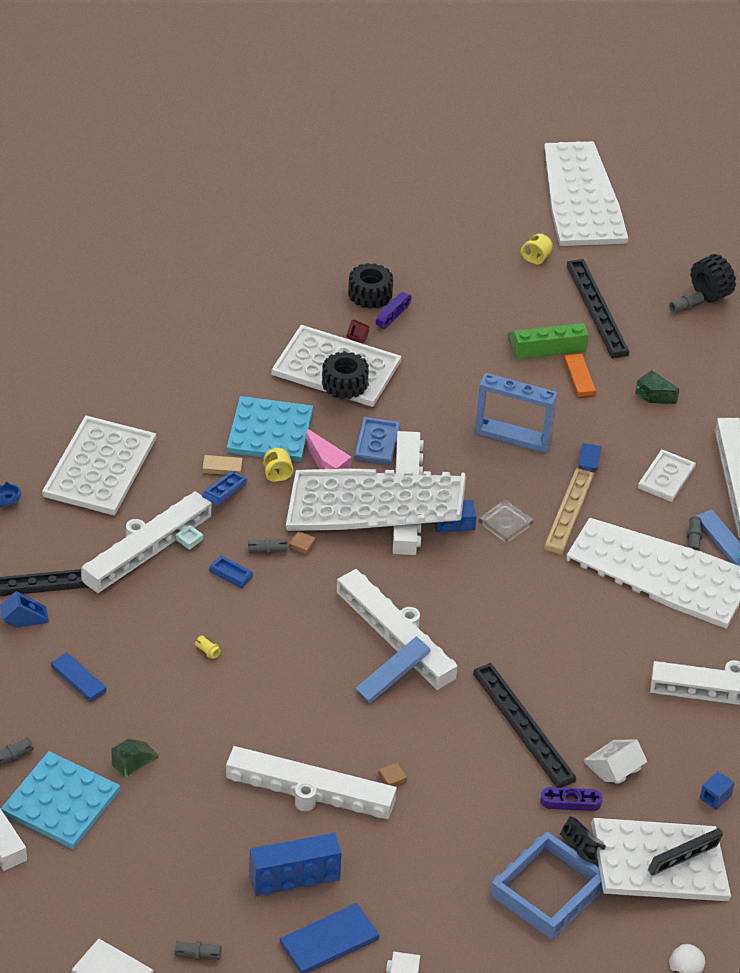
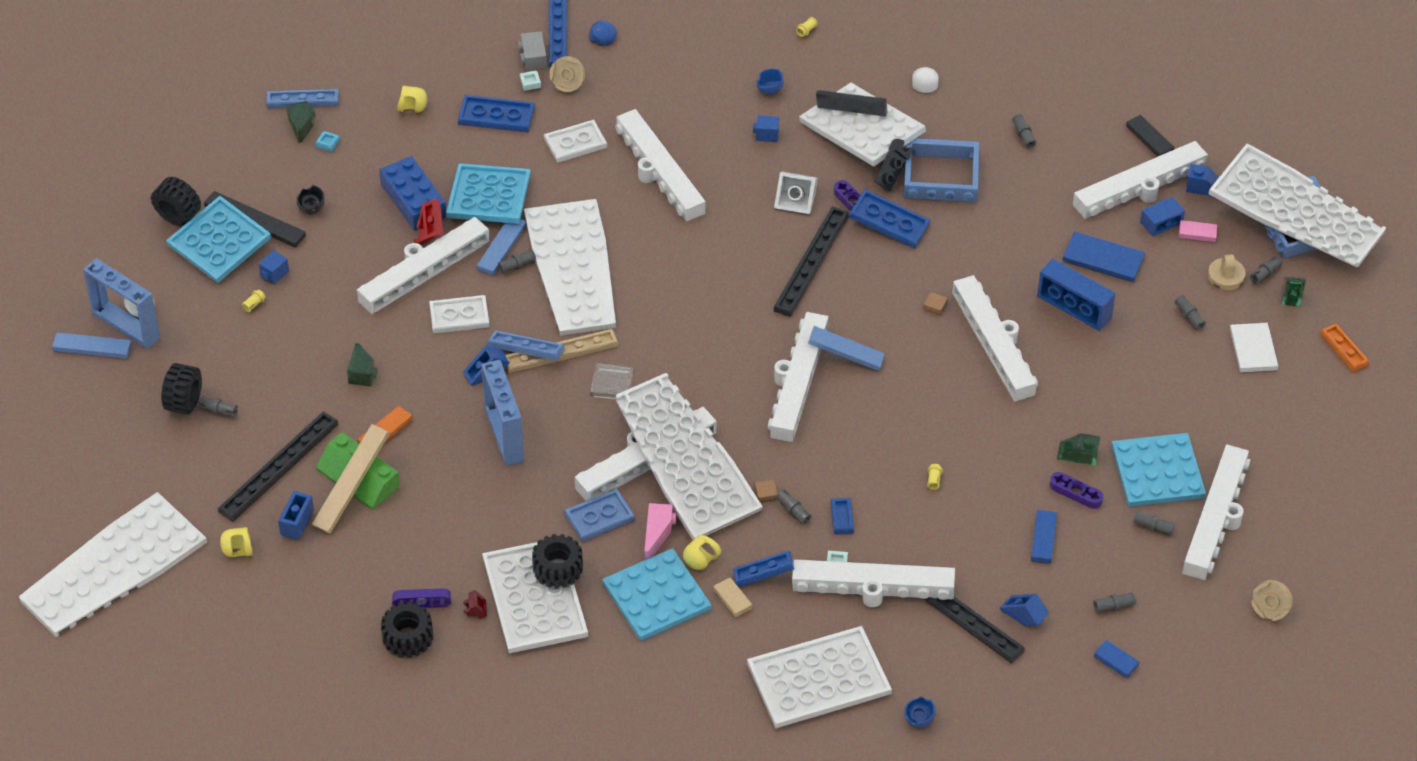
camera: 125 degrees left, 5 degrees up
(86, 737) = (1081, 497): none -> dark purple beam
(521, 804) = (889, 218): none -> blue tile
(532, 283) = (296, 515): none -> blue brick
(536, 317) = (350, 479): none -> tan tile
(590, 487) = (526, 345): none -> medium blue tile

